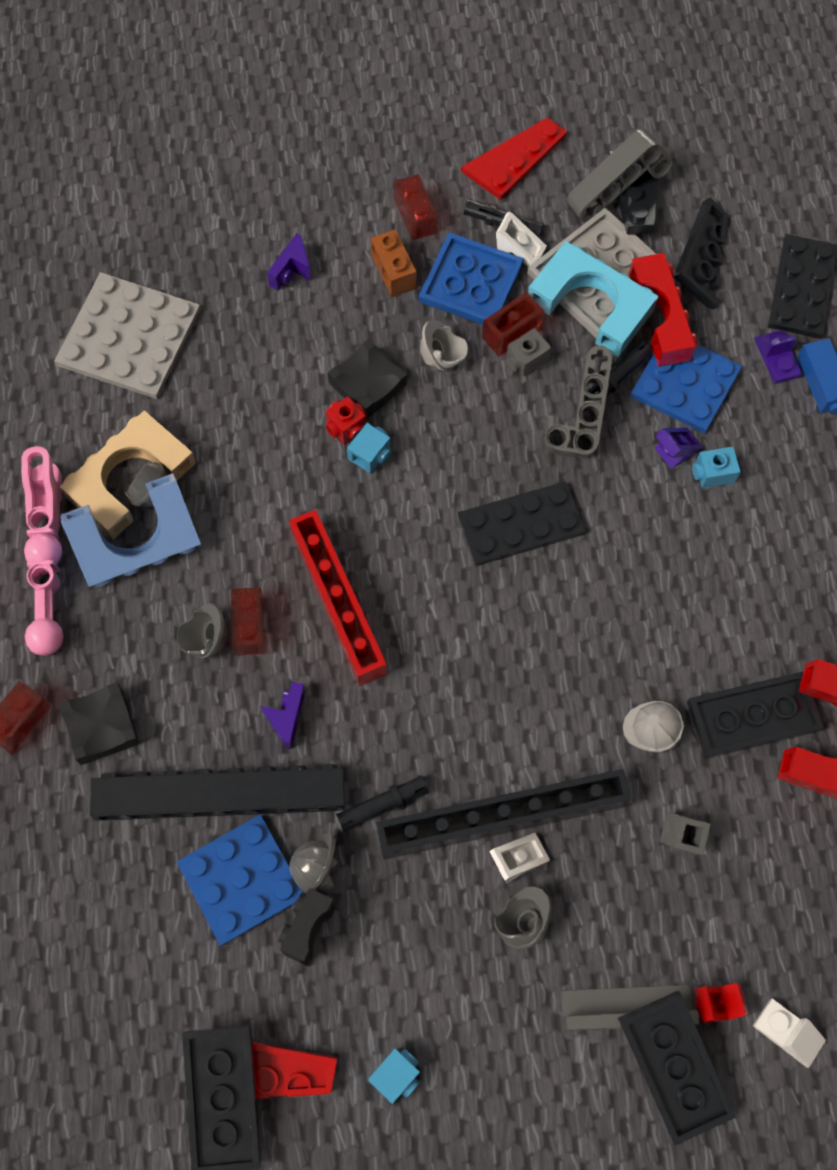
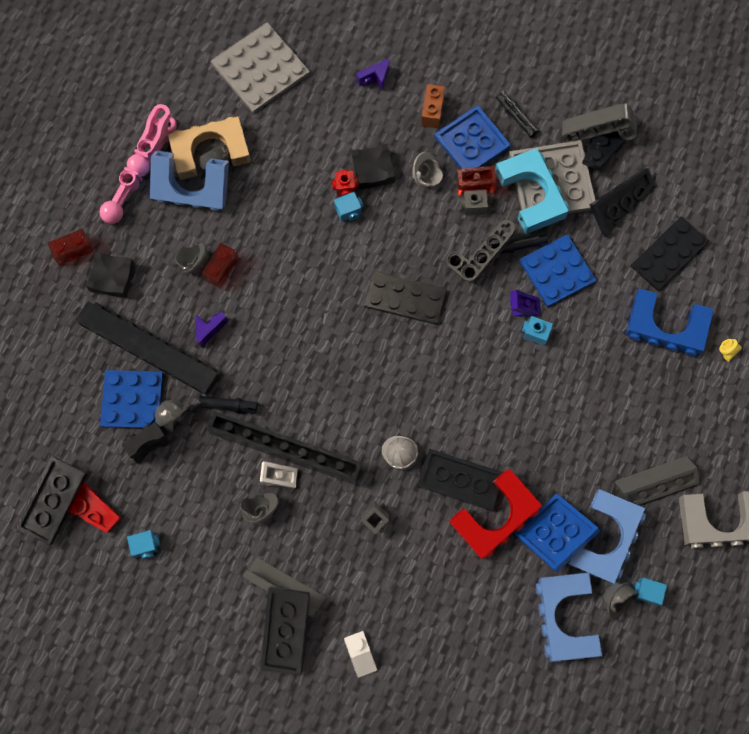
camera: 35 degrees right, 5 degrees up
(338, 598) = (275, 280): red brick -> none
(415, 207) = (468, 79): clear red brick -> none
(512, 160) = (549, 80): red wing -> none
(518, 239) = (514, 132): white slope -> none
(673, 339) = (562, 239): red arch -> none
(720, 1003) = (332, 615): red bracket -> none
(778, 357) = (623, 287): dark purple slope -> none

